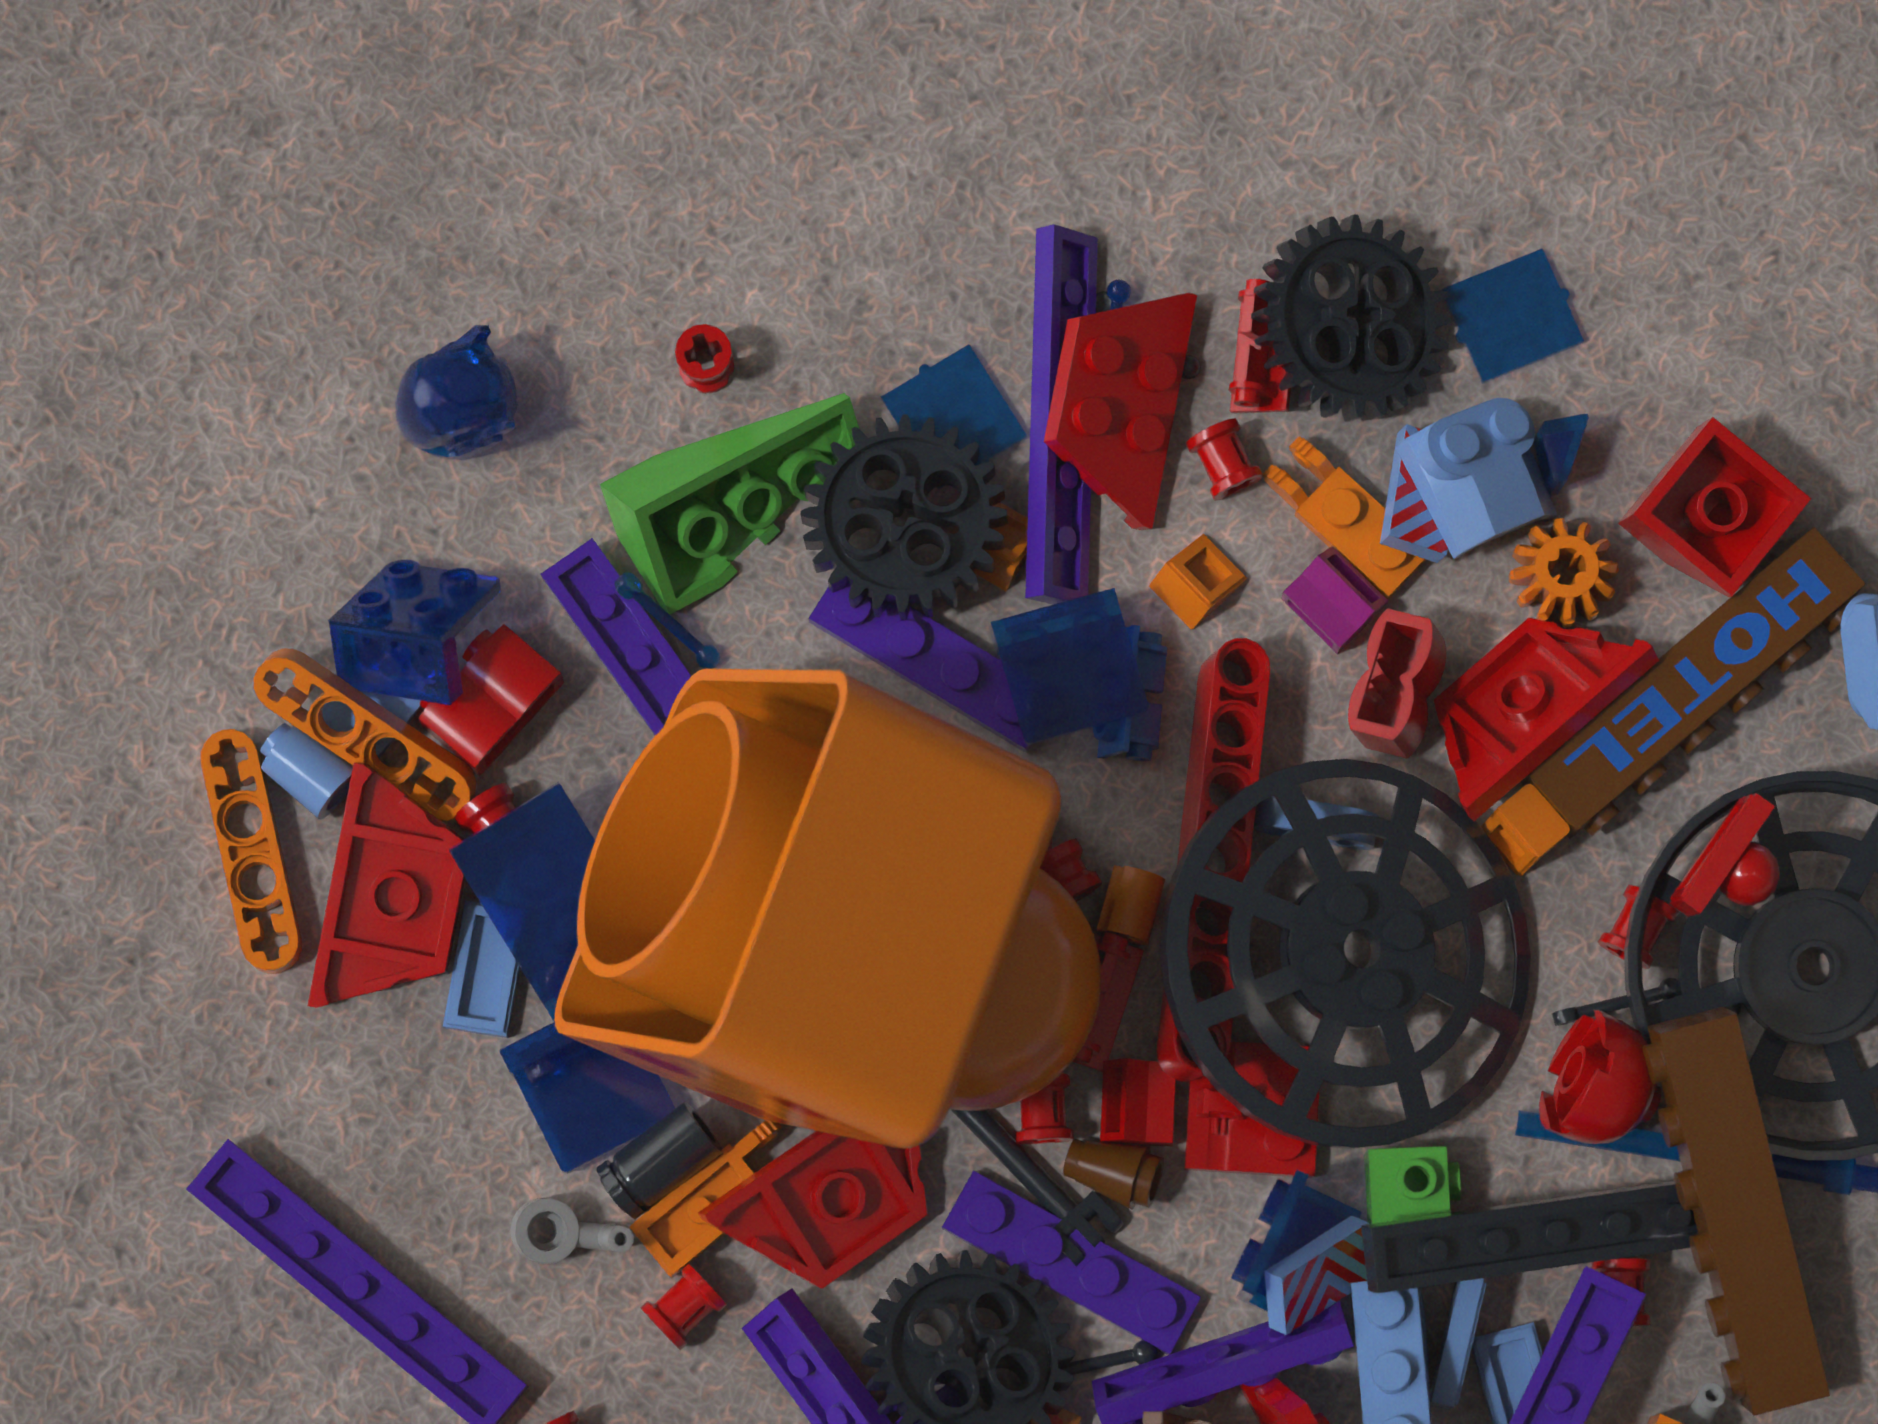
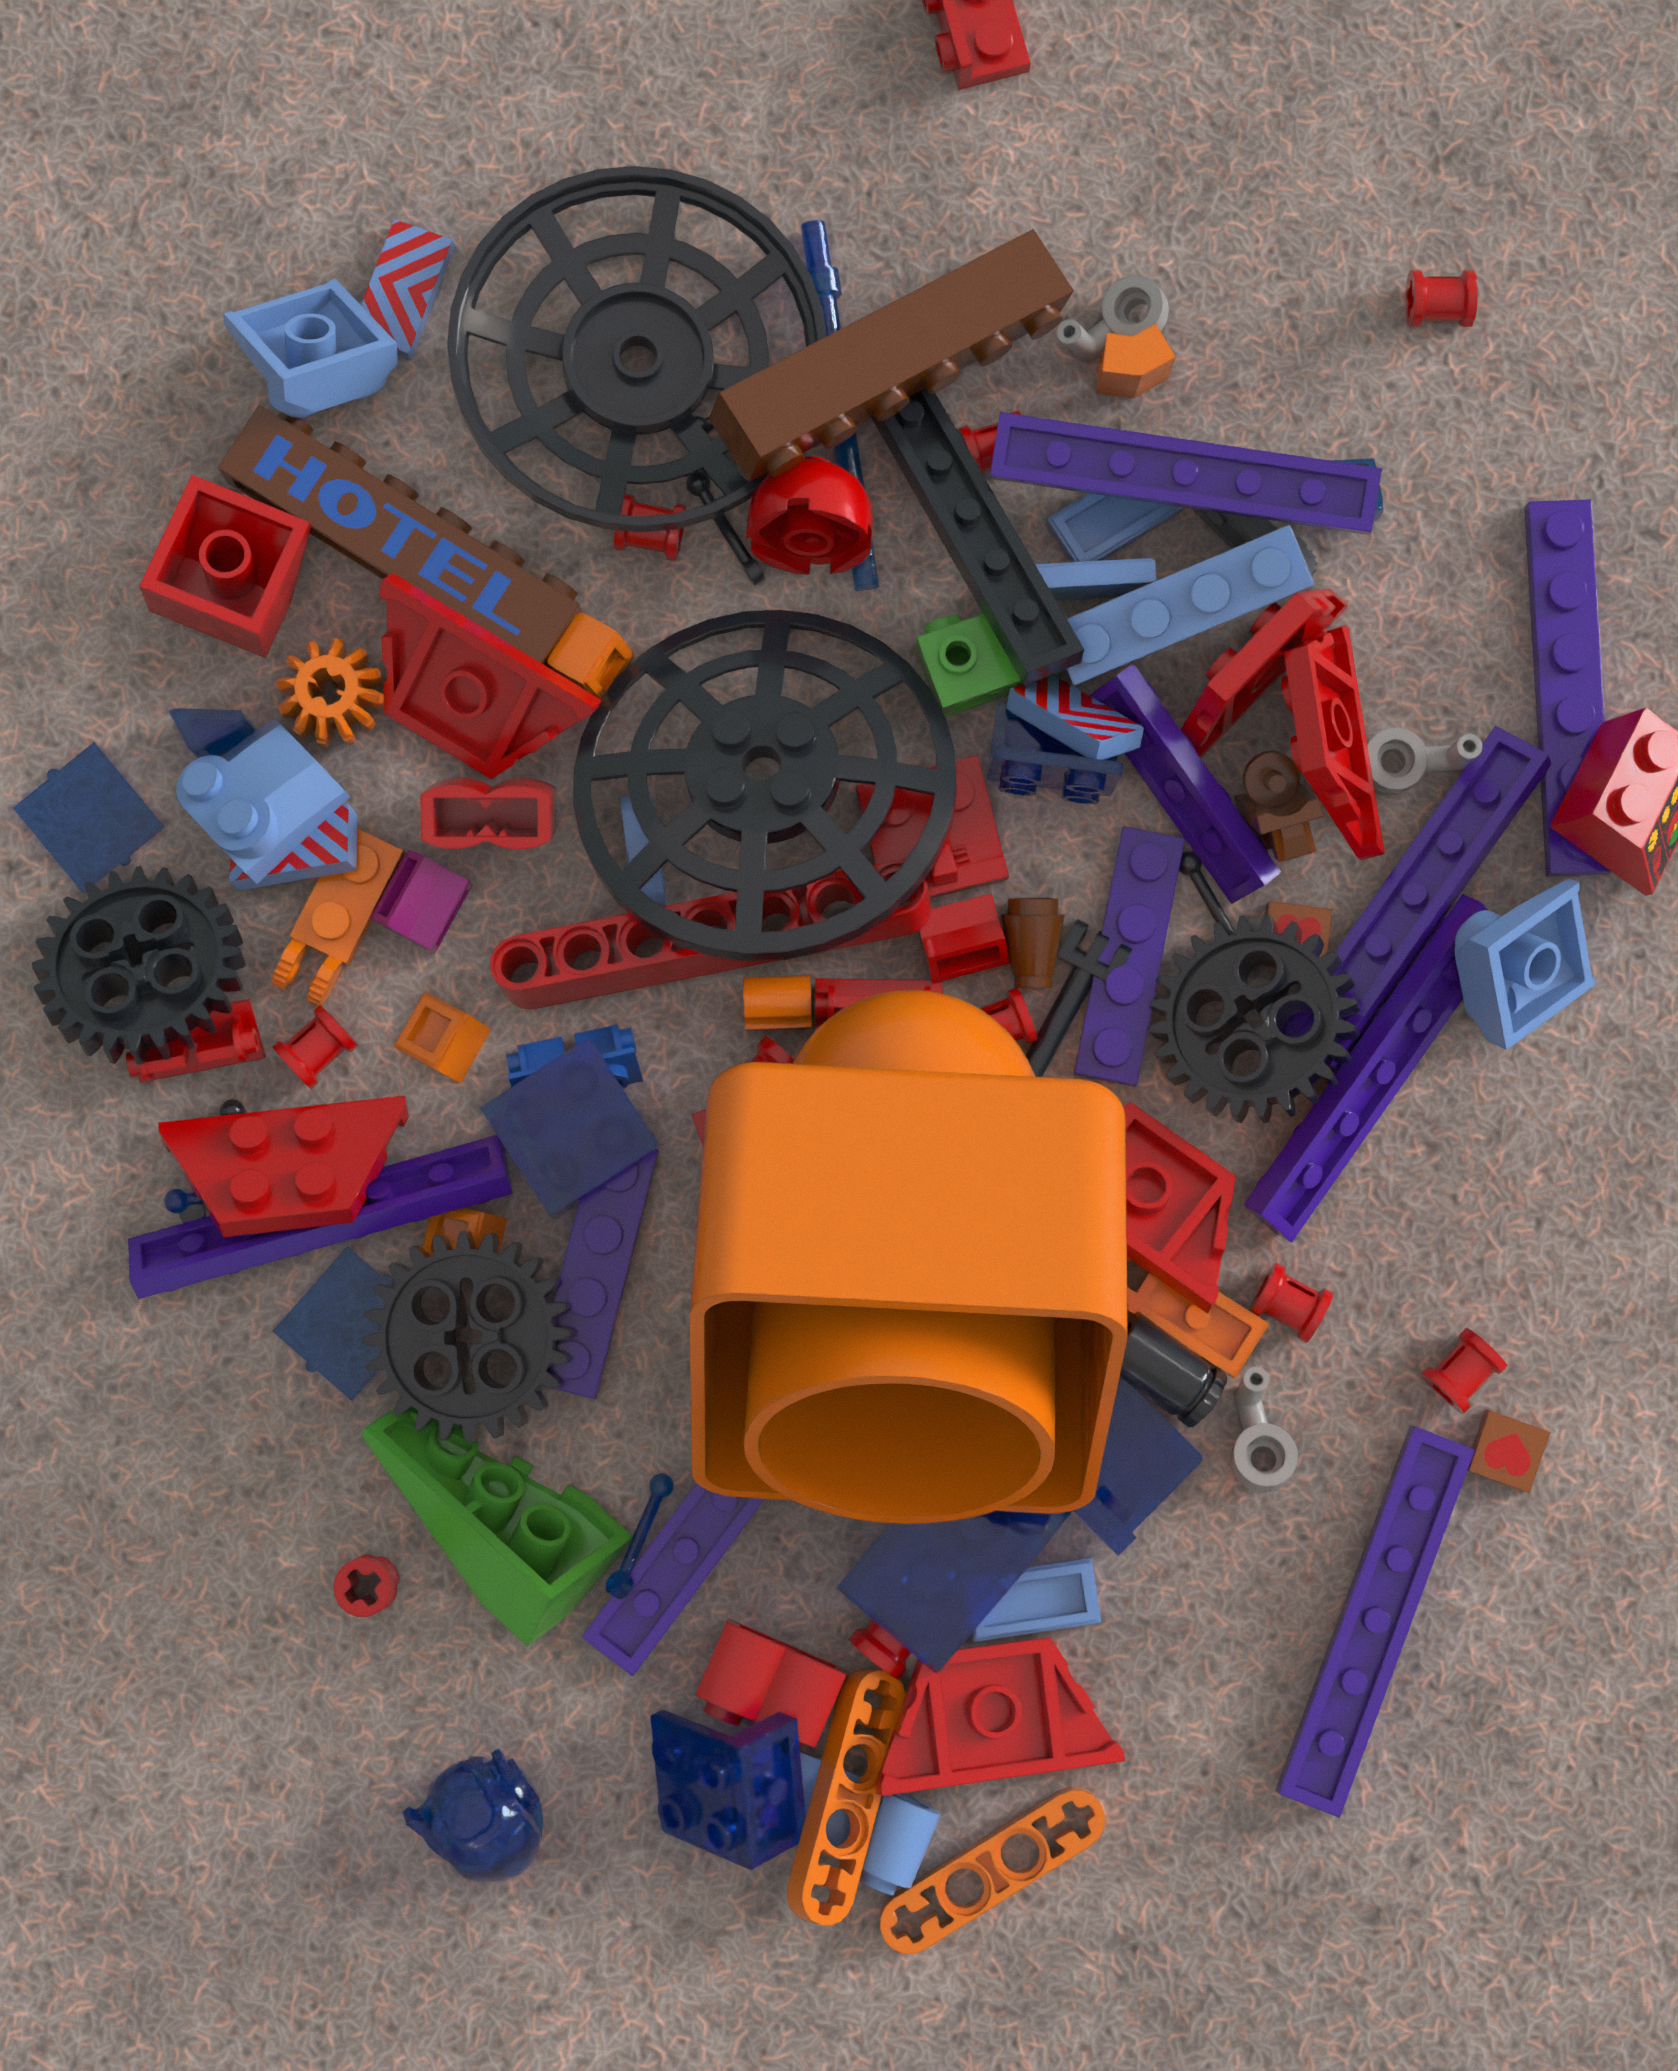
camera: 115 degrees left, 5 degrees up
(1732, 862) = (570, 445): red tile -> none

